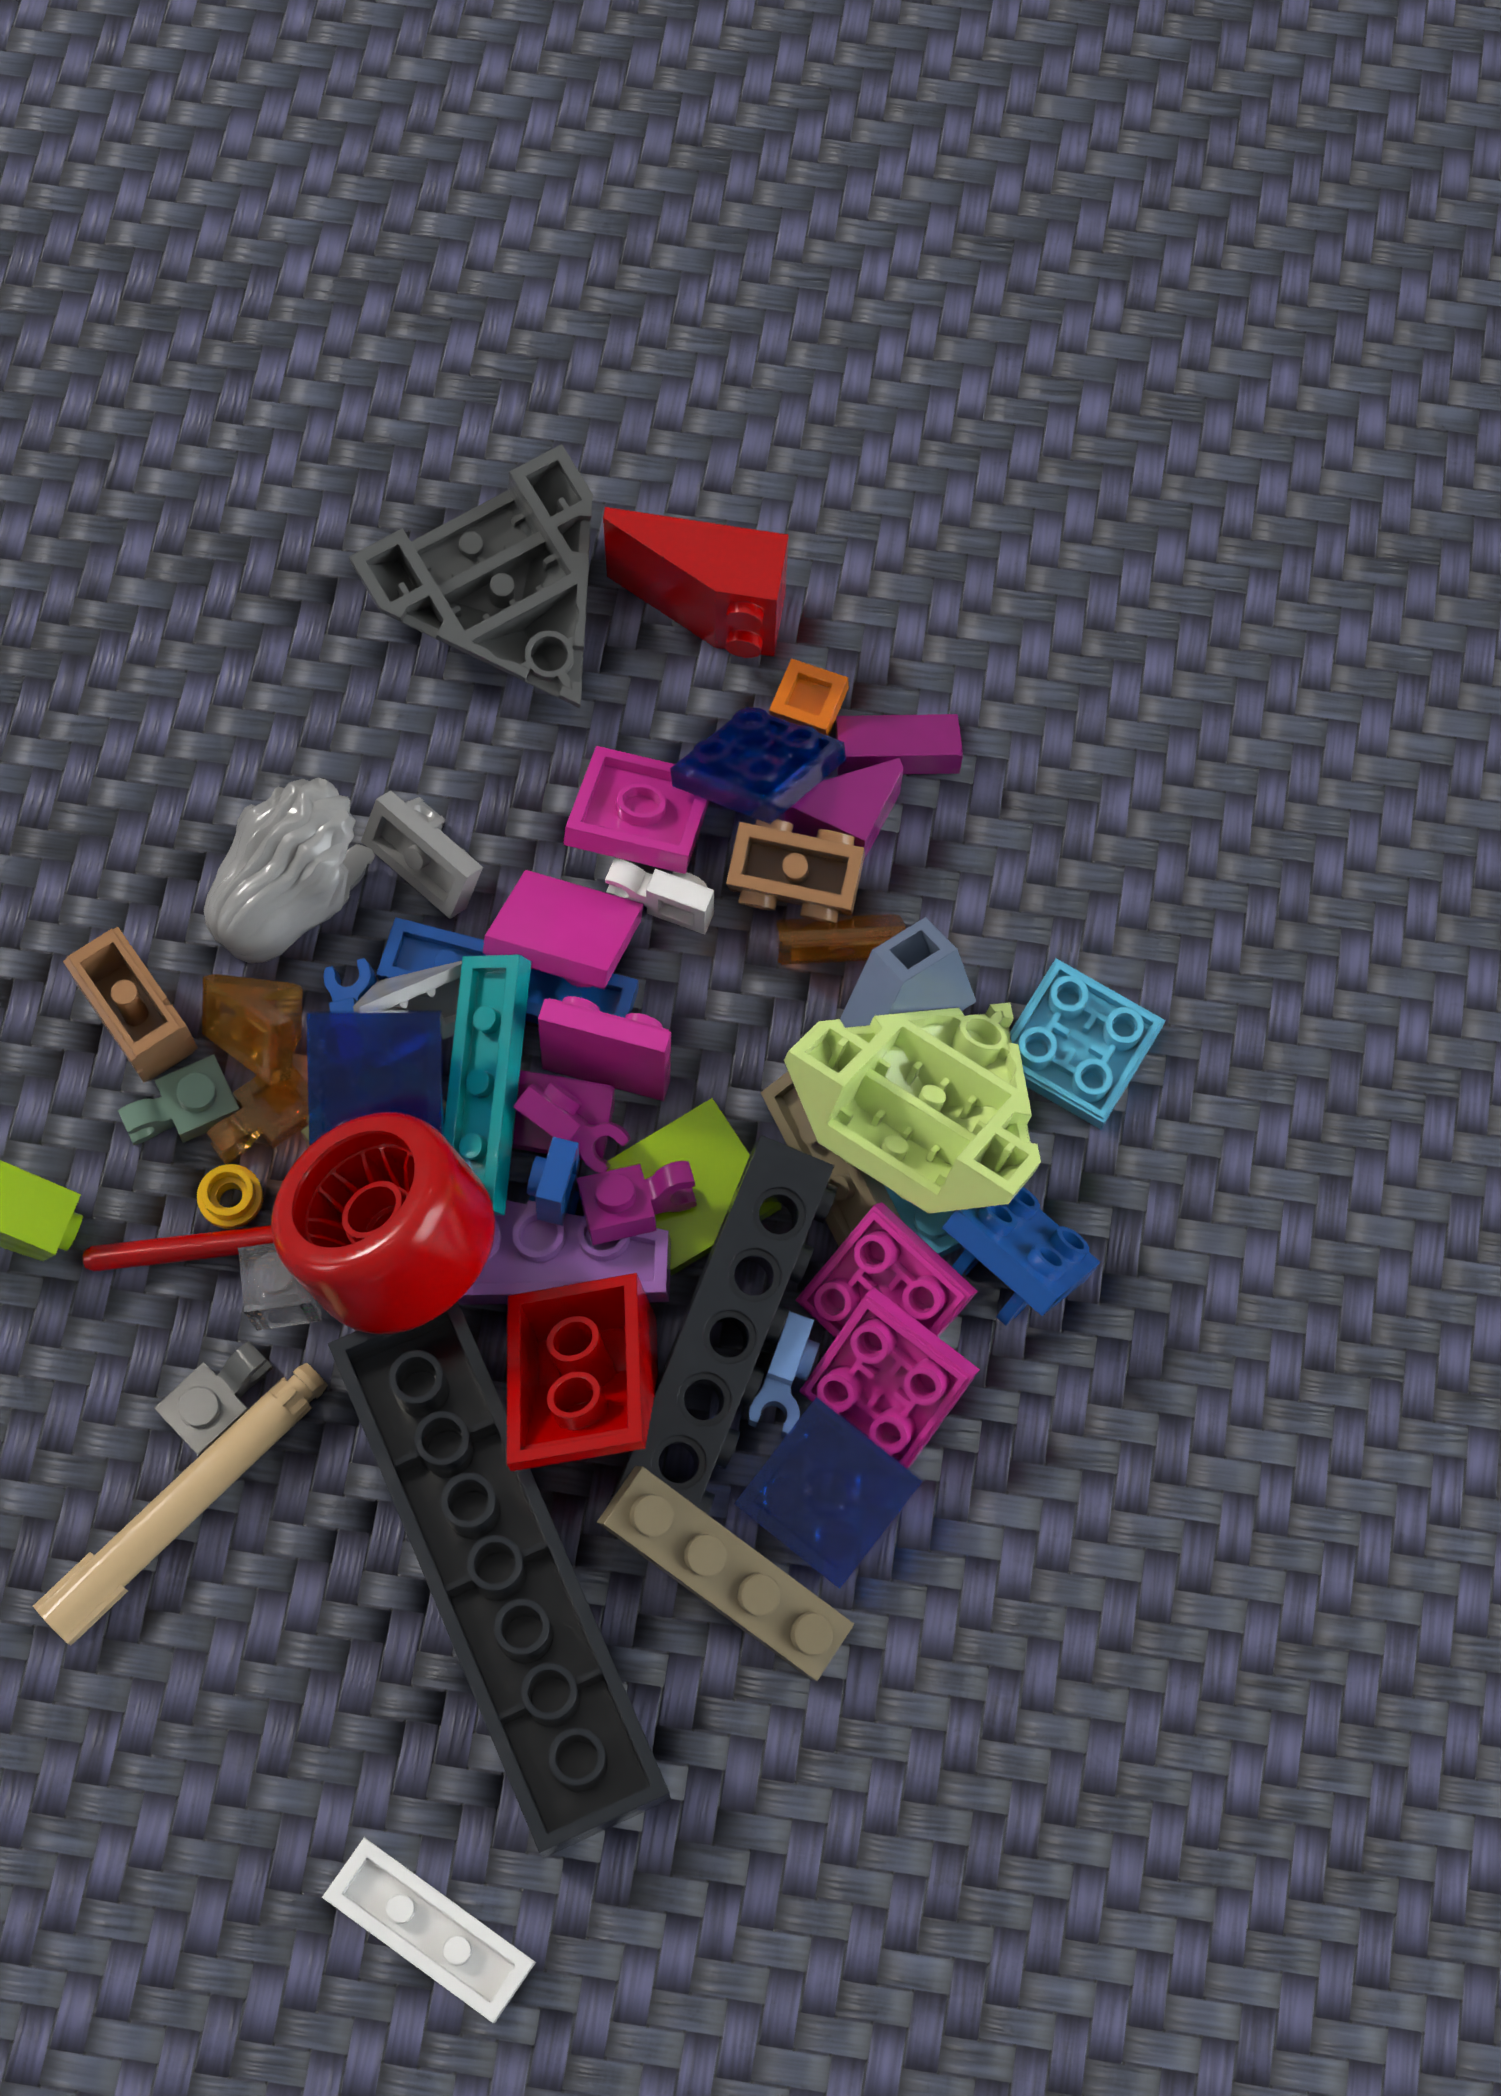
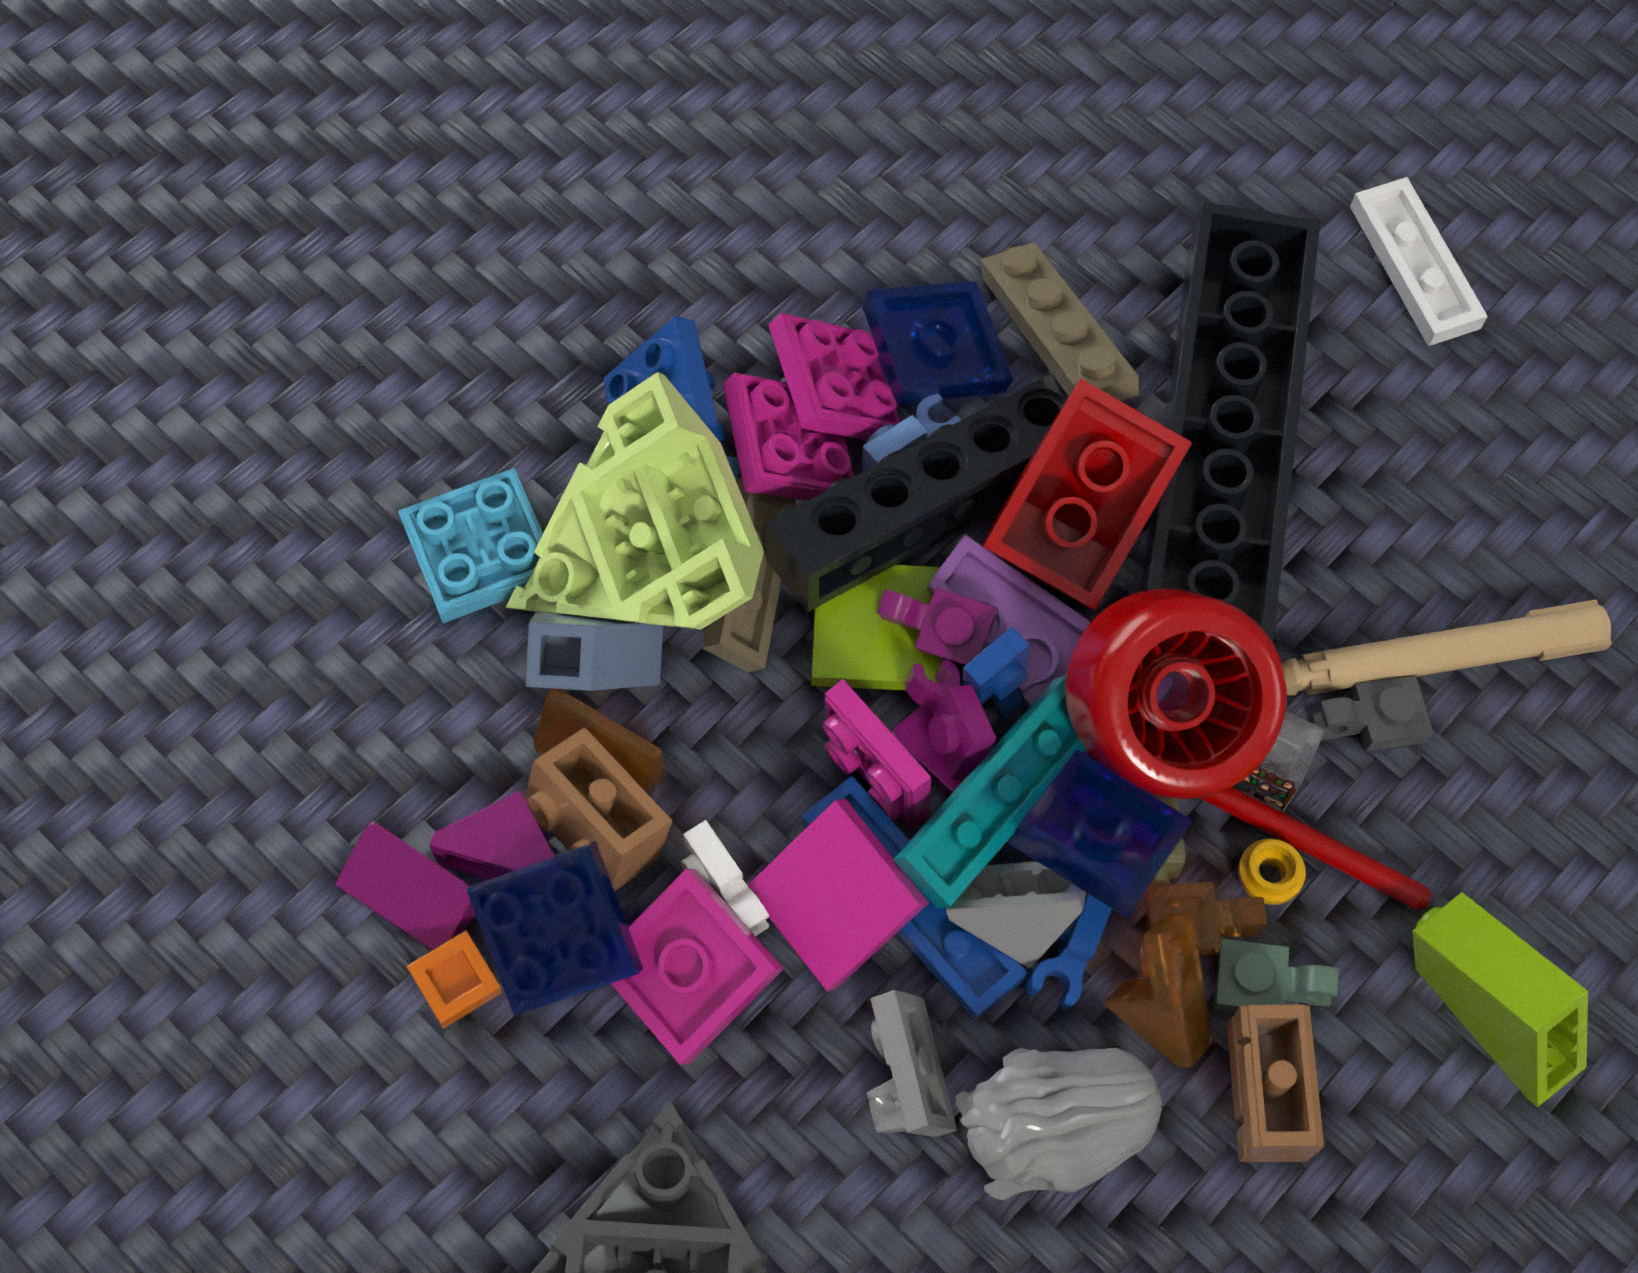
camera: 145 degrees left, 5 degrees down
(702, 575) = (440, 1111): red slope -> none

